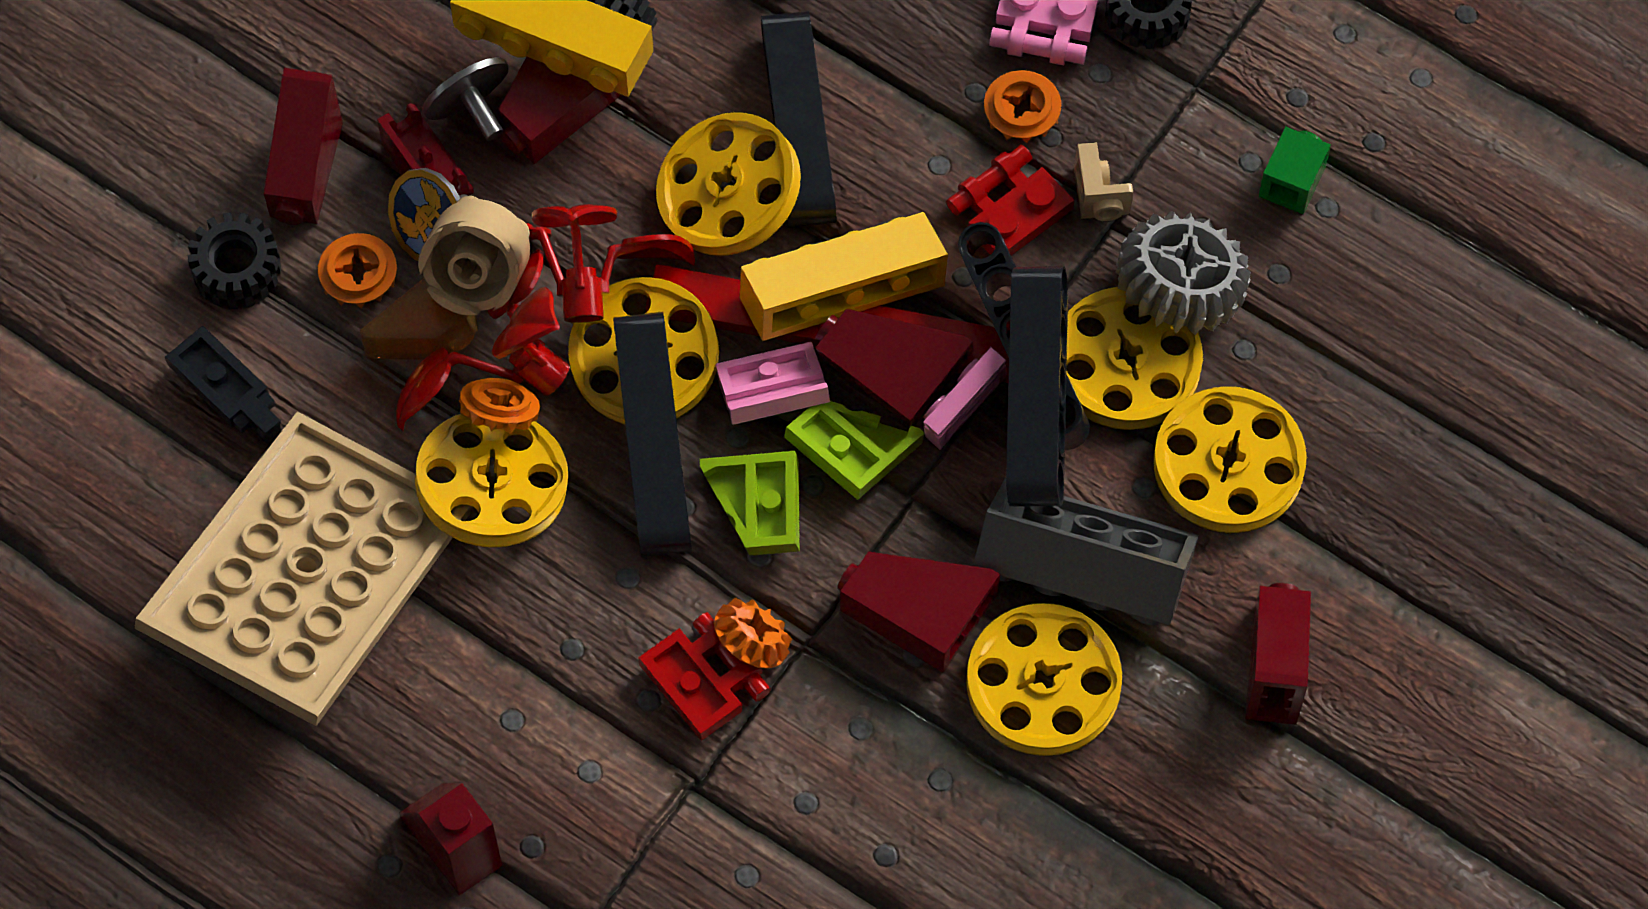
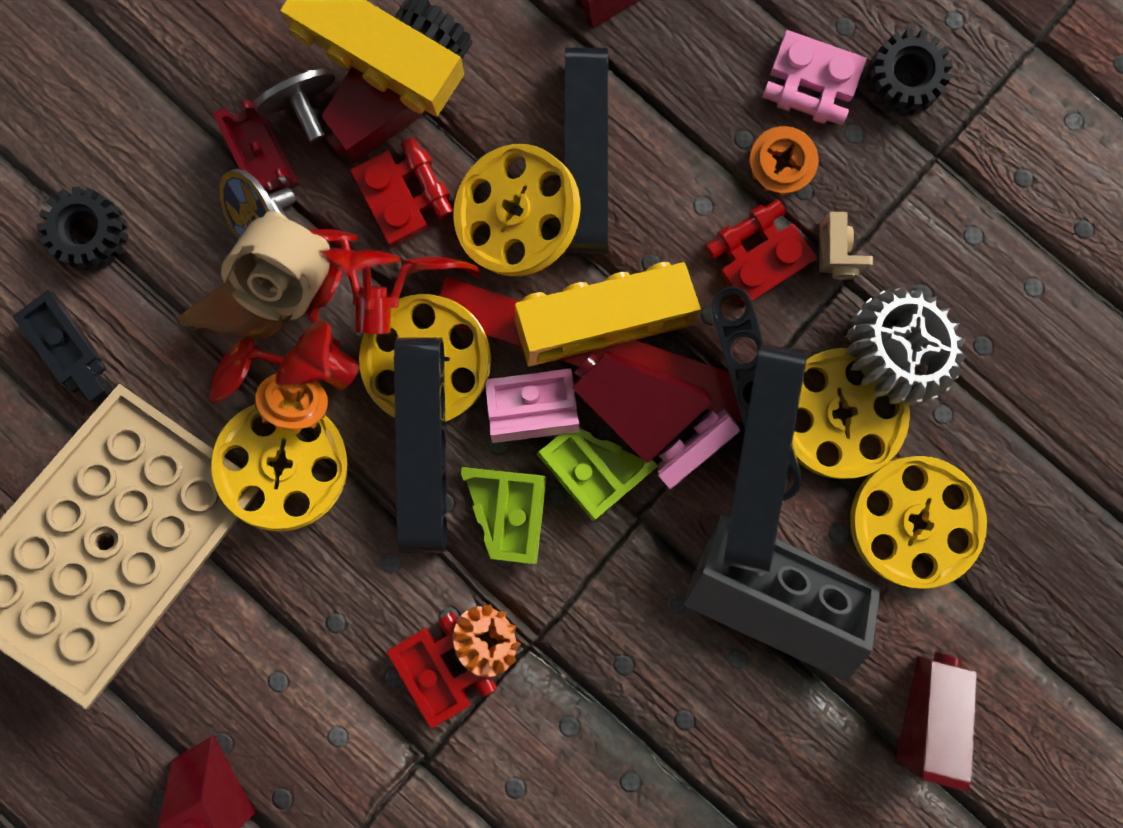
camera: 10 degrees right, 20 degrees up
(302, 146) = (146, 130): dark red slope -> none
(339, 259) = (177, 235): orange gear -> none
(574, 181) = (390, 198): none -> red plate
(918, 602) = (632, 629): dark red slope -> none
(1049, 656) = (747, 725): yellow wedge -> none
(1294, 169) = (1016, 253): green brick -> none

